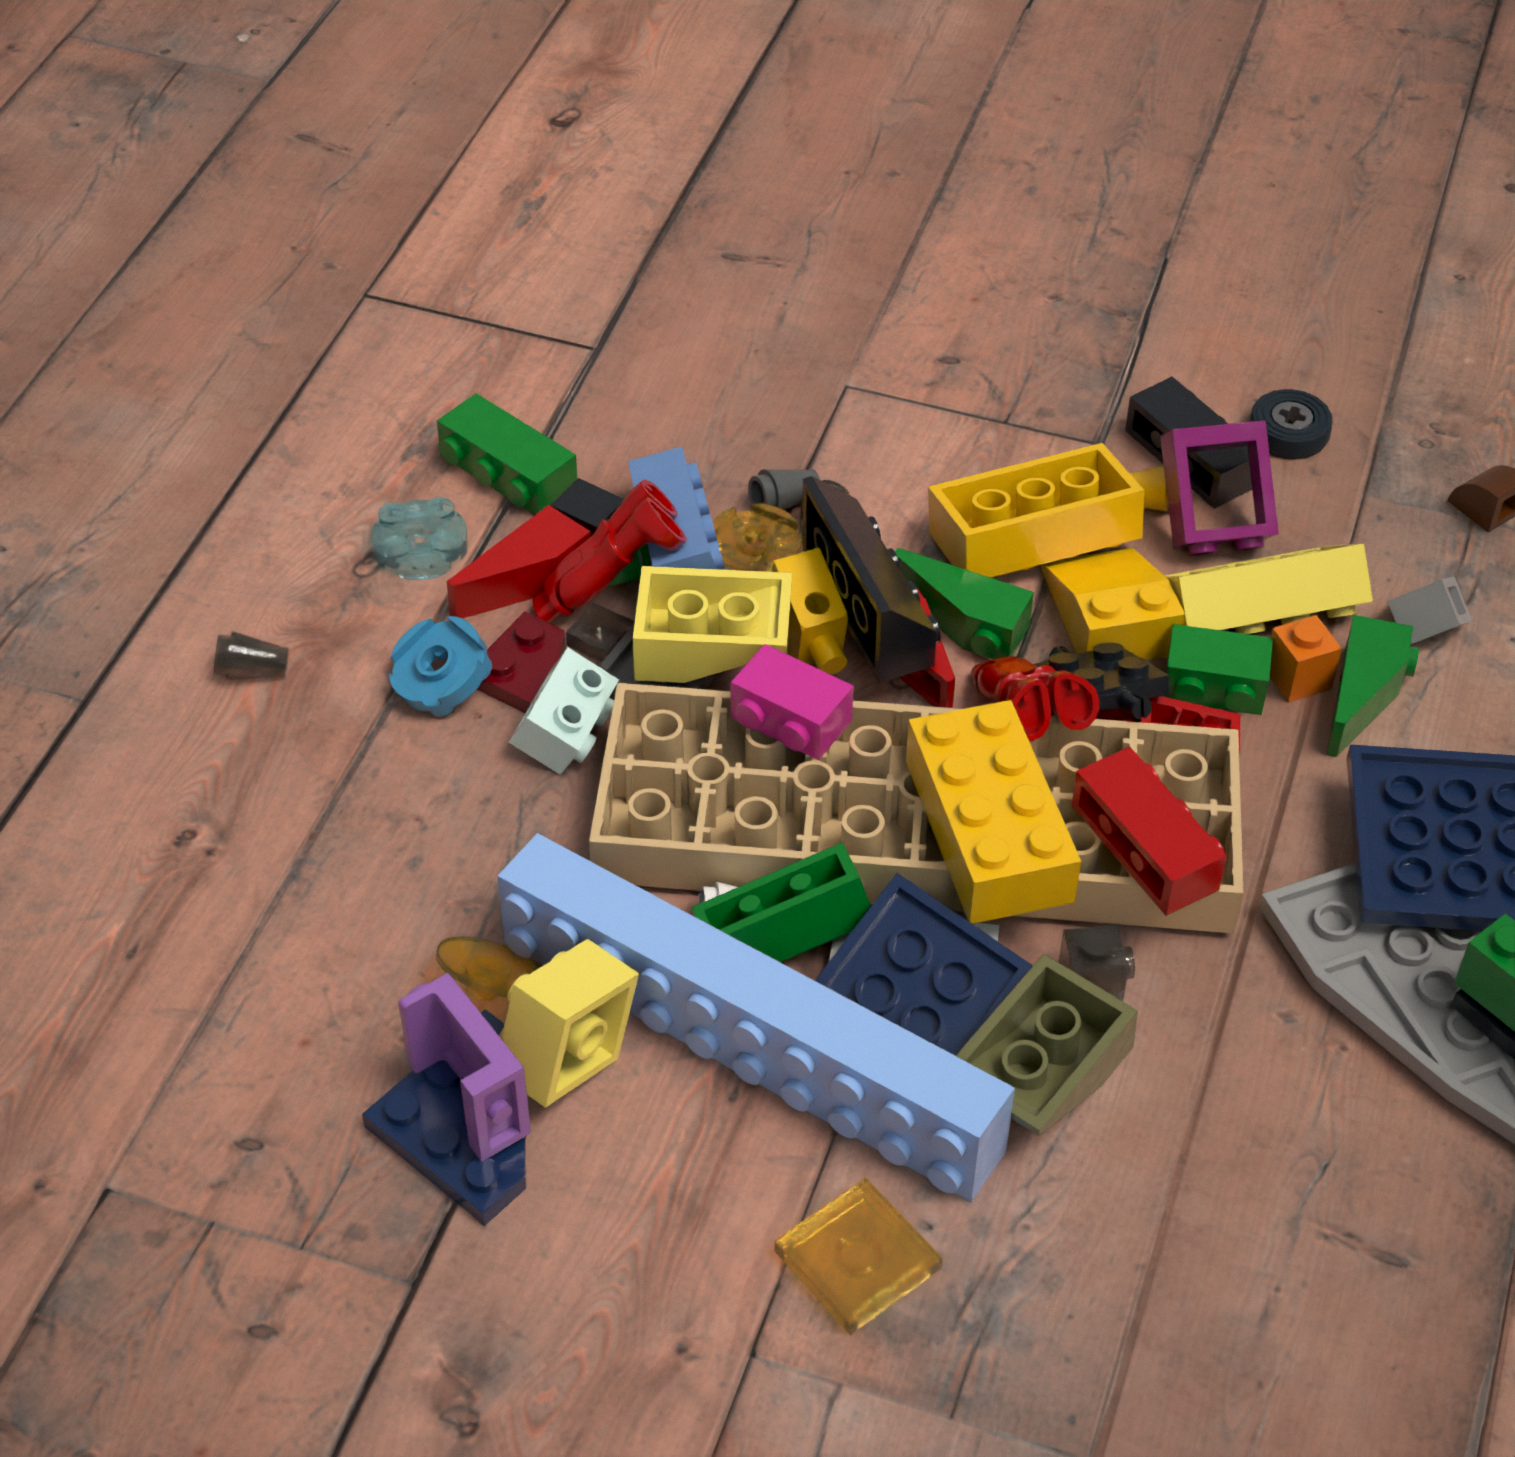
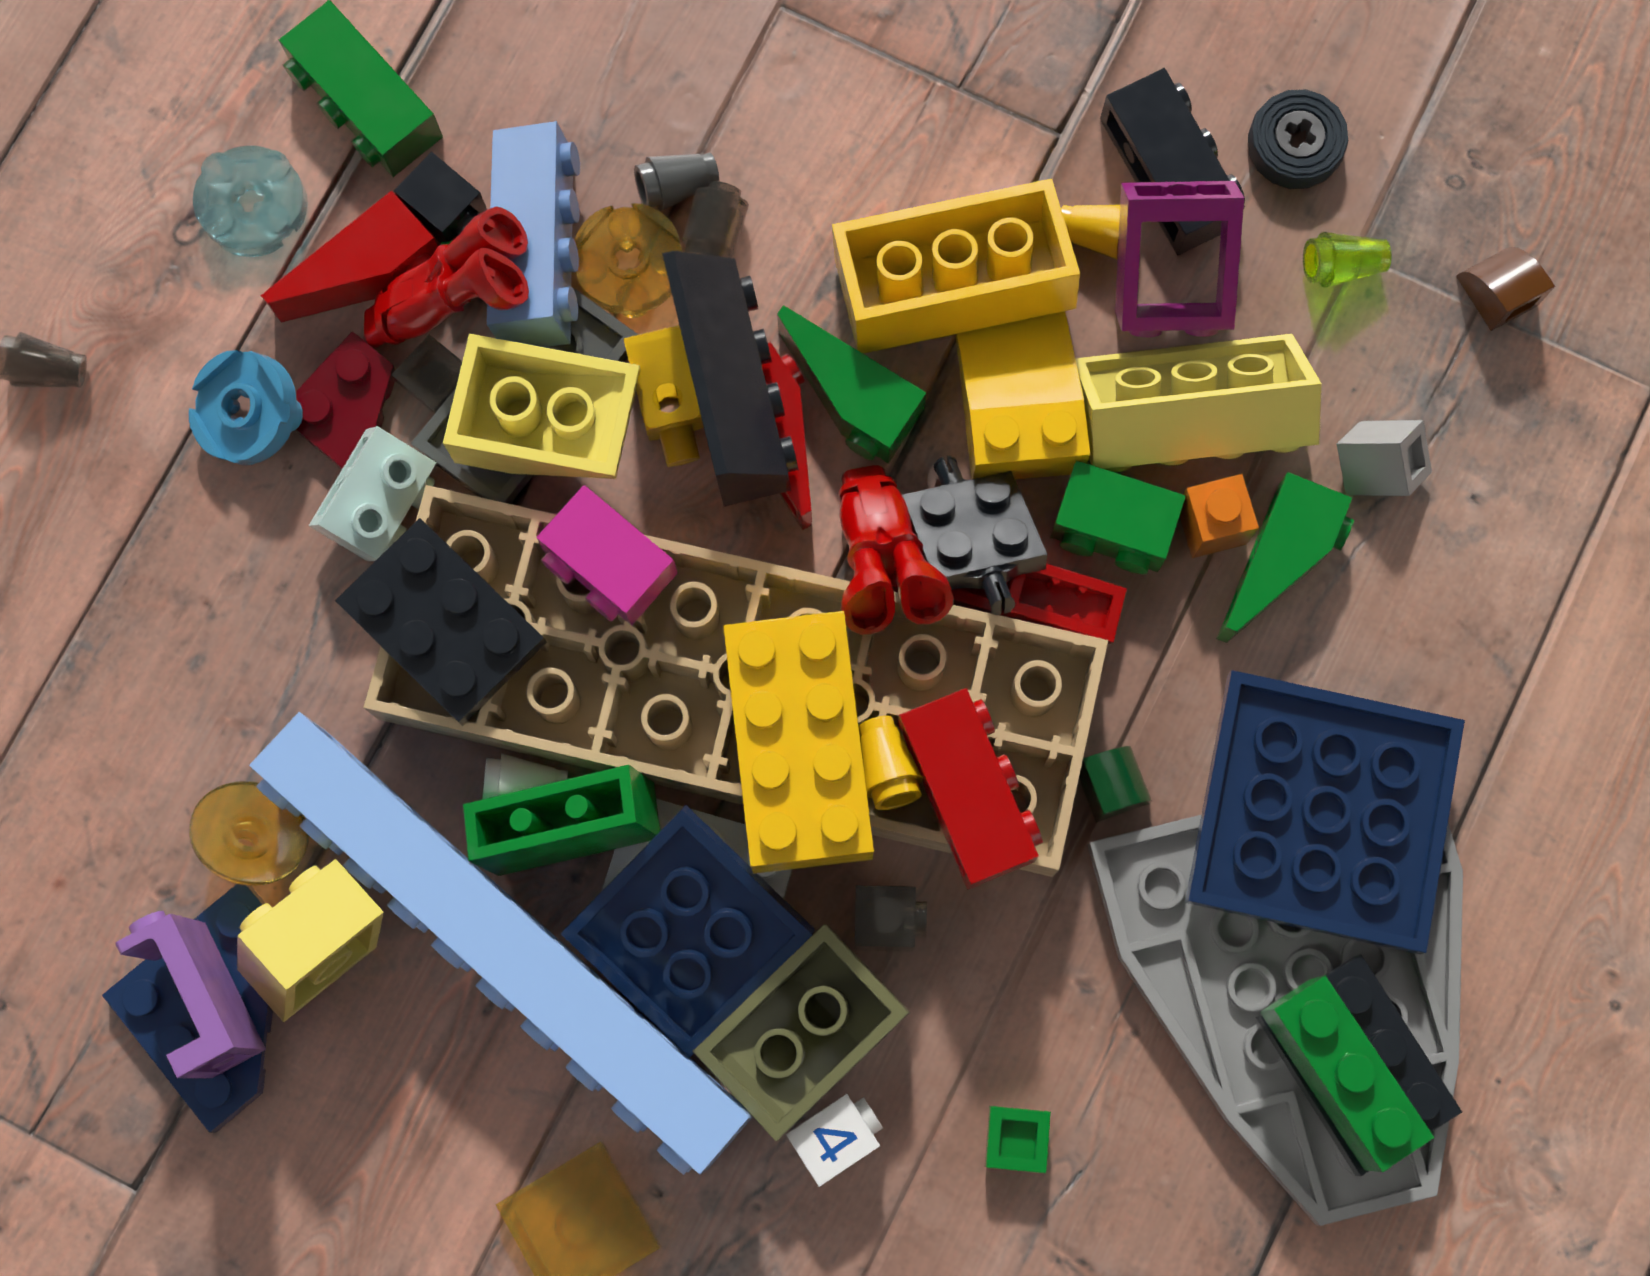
camera: 10 degrees right, 30 degrees up
(650, 769) = (441, 621): none -> black plate
(1084, 824) = (888, 765): none -> yellow cone
(1088, 1146) = (836, 1138): none -> white brick
(1261, 1130) = (1017, 1139): none -> green plate
(1269, 854) = (1113, 783): none -> dark green brick
(1352, 489) = (1344, 258): none -> clear neon green cone

